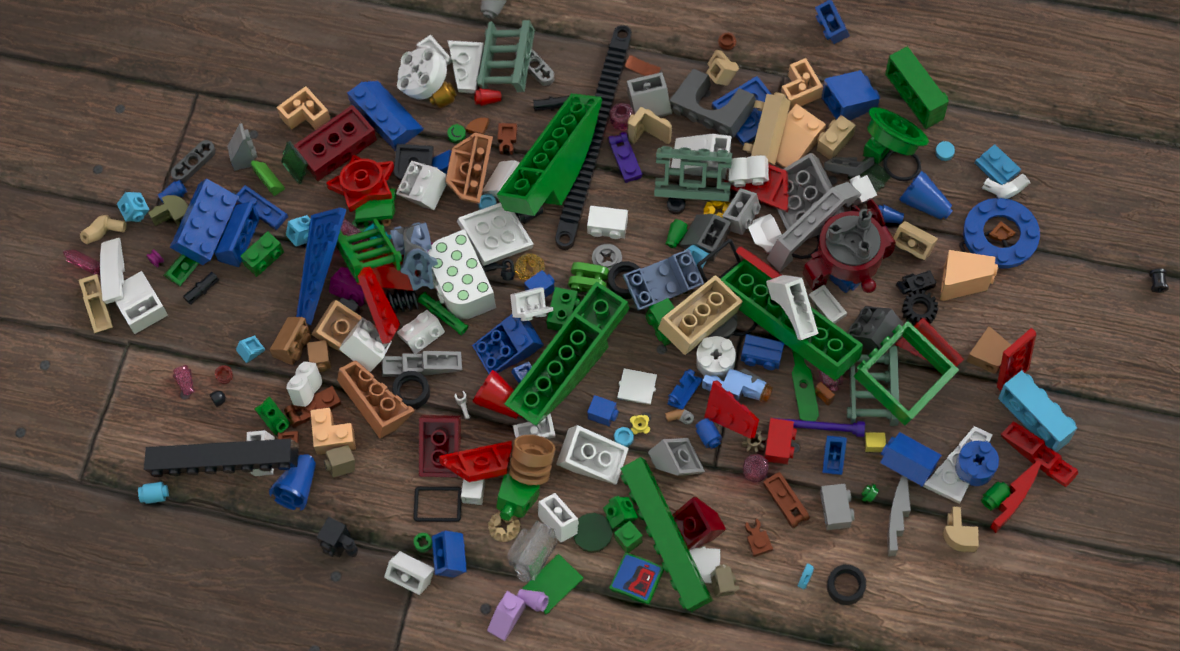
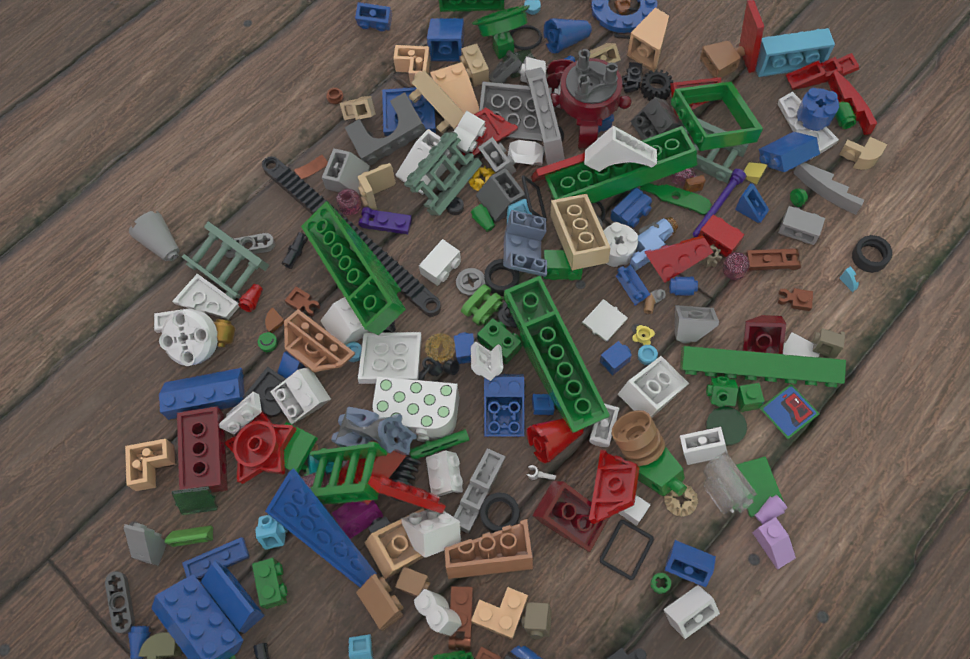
camera: 60 degrees left, 0 degrees up
(380, 151) = (242, 414): none -> white bracket
(516, 285) = (451, 366): none -> black hinge

